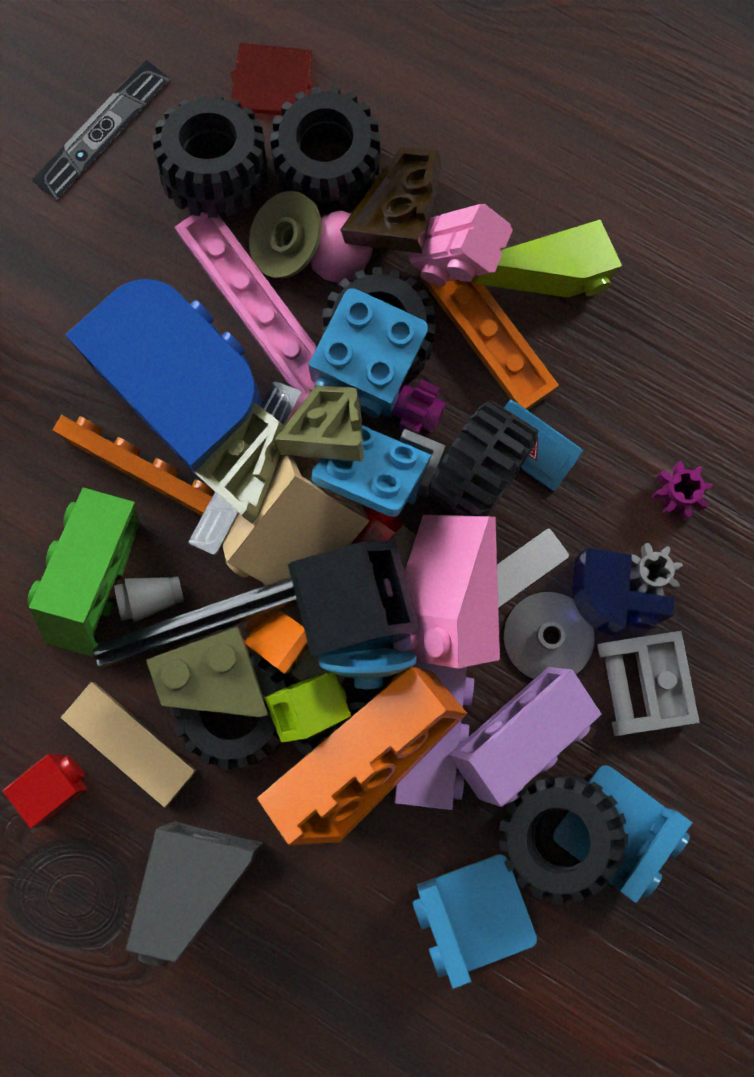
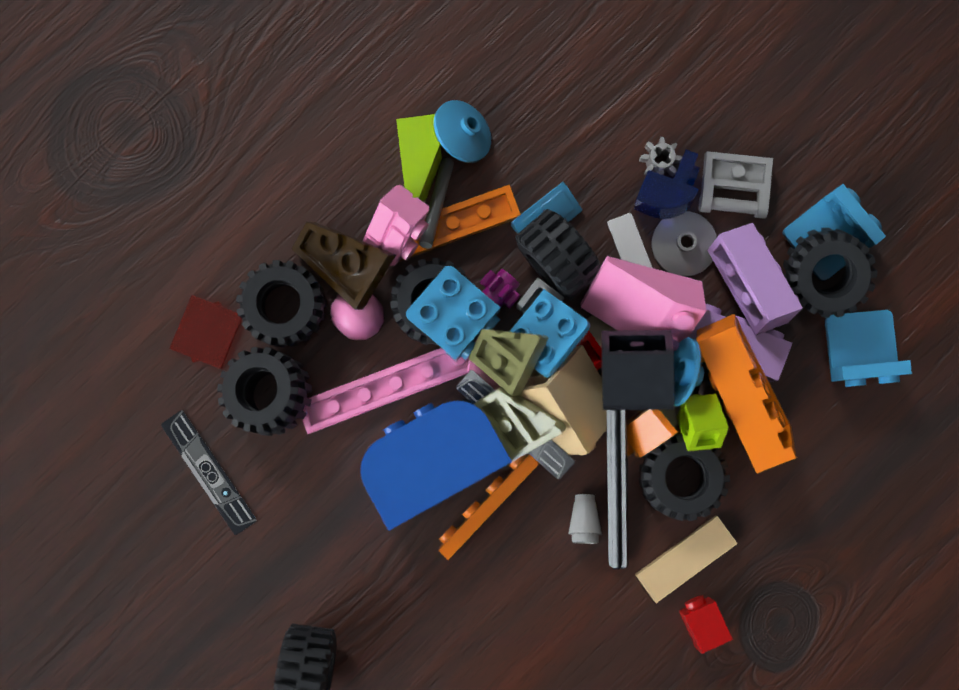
camera: 80 degrees left, 5 degrees up
(83, 570) = (555, 560): bright green wedge -> none
(184, 886) = (800, 535): dark grey slope -> none
(210, 676) = (664, 485): olive wing -> none
(285, 234) = (339, 364): olive dish -> none
(507, 299) = (436, 203): none -> dark grey bar
(596, 307) = (462, 131): none -> dark azure dish
(687, 480) = (616, 117): magenta gear -> none

